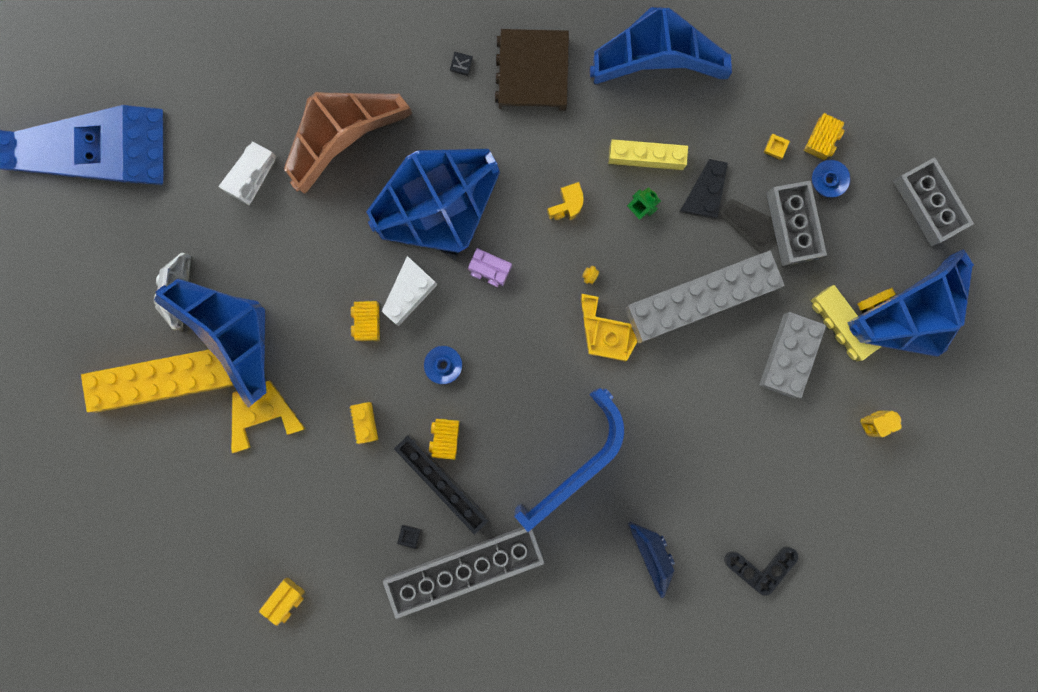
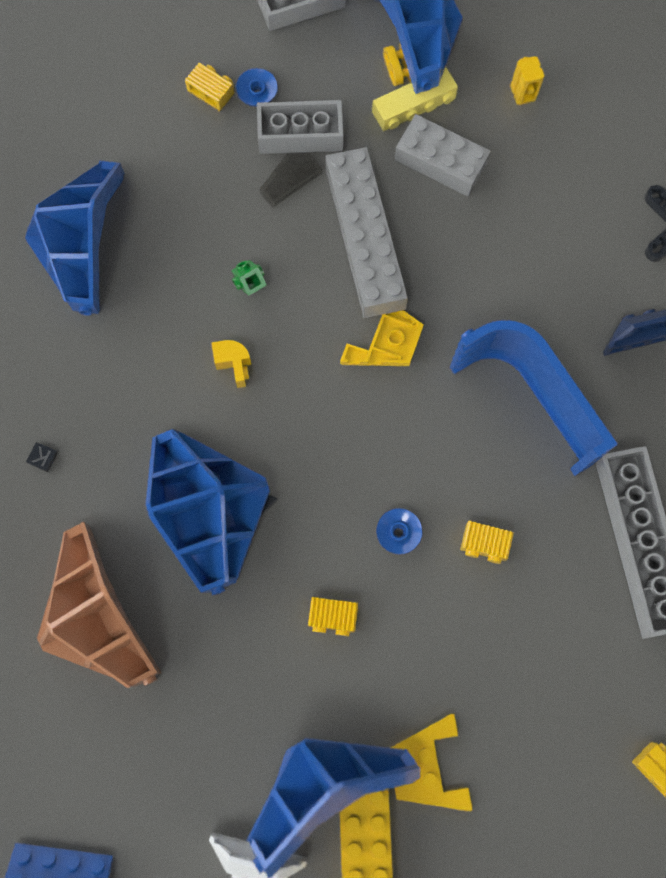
camera: 90 degrees left, 10 degrees down
(248, 173) = (122, 736): white wedge -> none
(364, 422) = (456, 635): yellow brick -> none
(408, 292) = (305, 558): white wedge -> none
(409, 536) = (596, 603): black tile -> none
(441, 484) = (540, 552): black brick -> none
(489, 267) = (293, 459): lavender brick -> none
(532, 68) = (66, 375): dark brown panel -> none
(590, 275) = (319, 349): yellow plate -> none
(648, 154) = (193, 266): light yellow brick -> none
(707, 192) = (248, 213): black wing -> none
(776, 146) = (211, 134): yellow plate -> none

